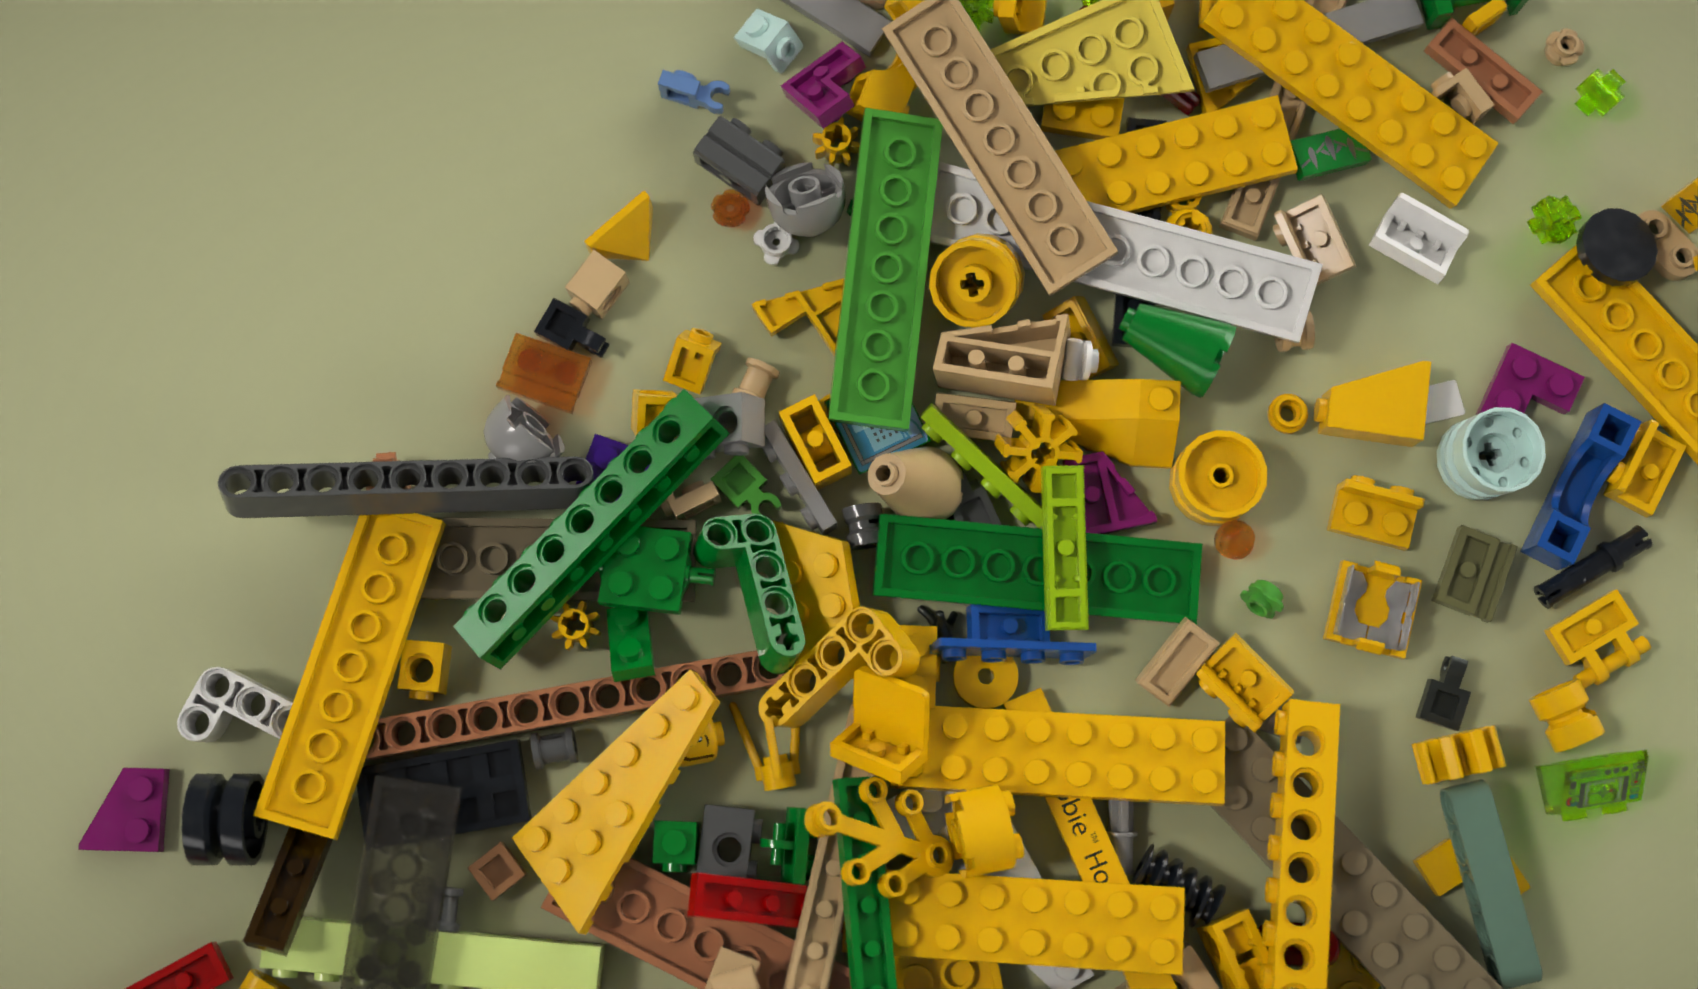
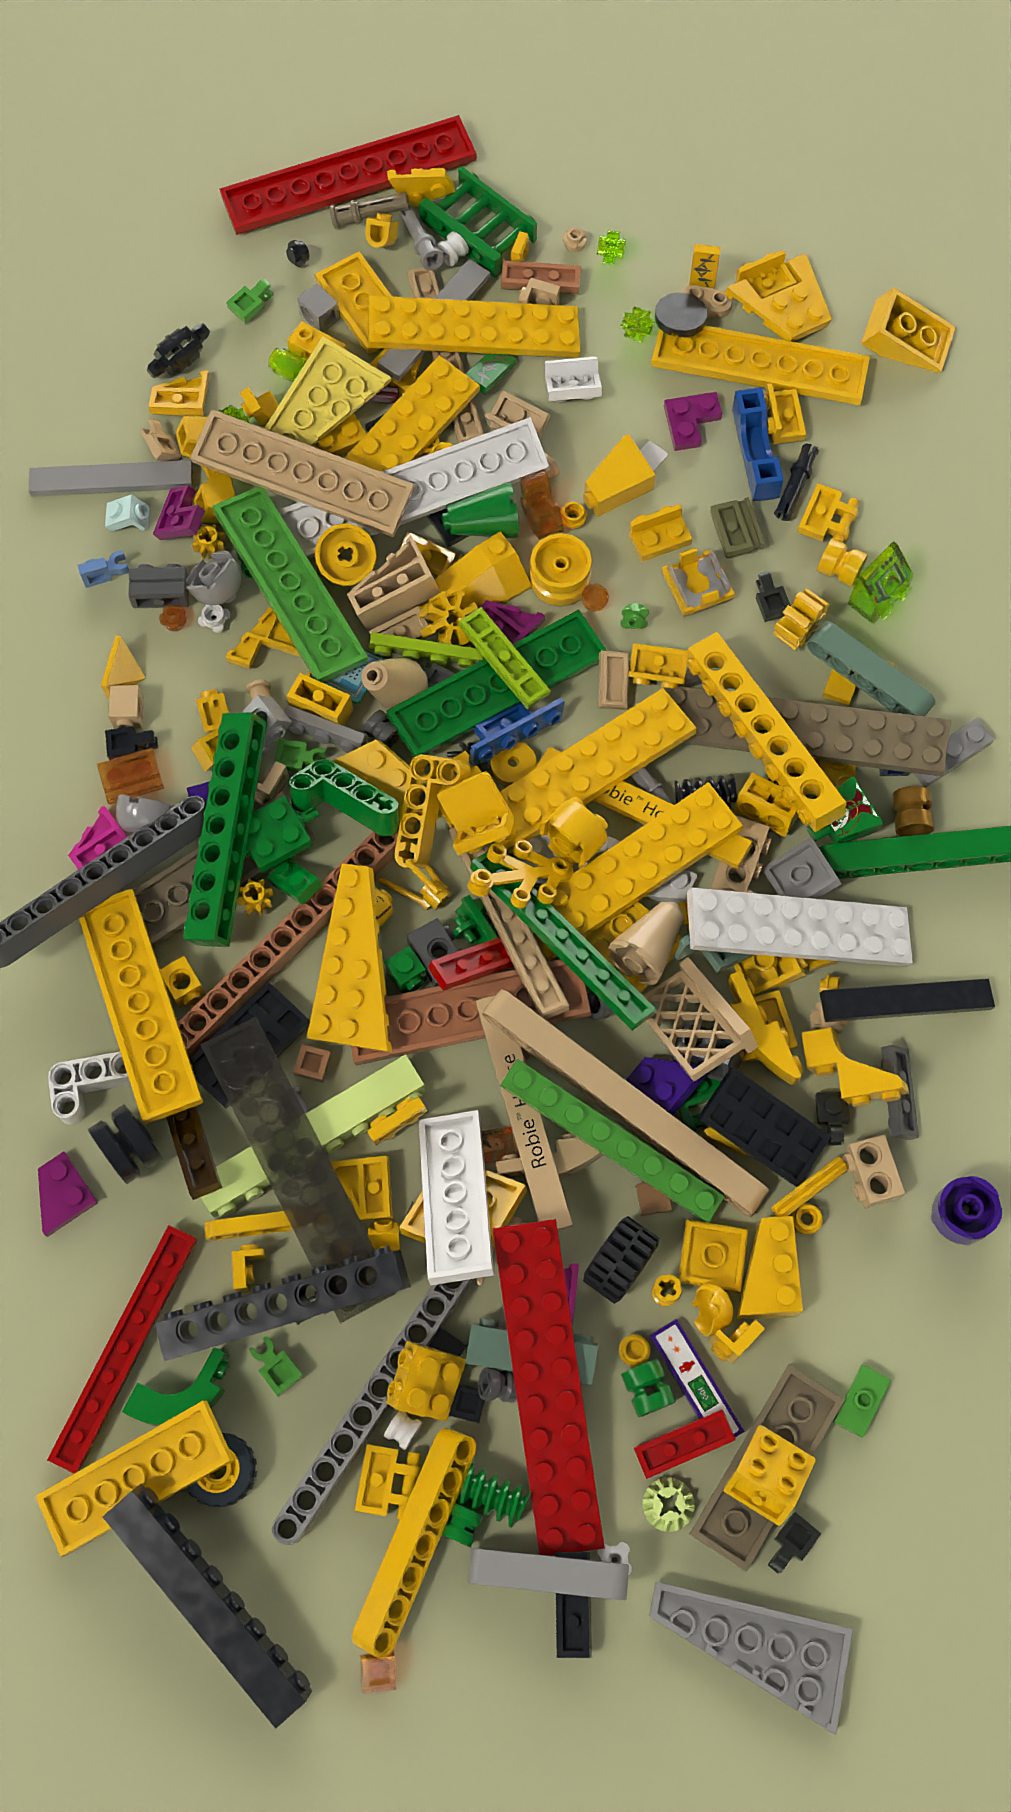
camera: 35 degrees left, 10 degrees down
(451, 431) = (97, 839): none -> dark pink wing
(554, 748) = (294, 972): dark grey bush -> none
(1079, 360) = (436, 559): white plate -> none
(1255, 378) = (539, 506): none -> clear orange brick
(1511, 448) = (696, 458): light aqua wheel -> none

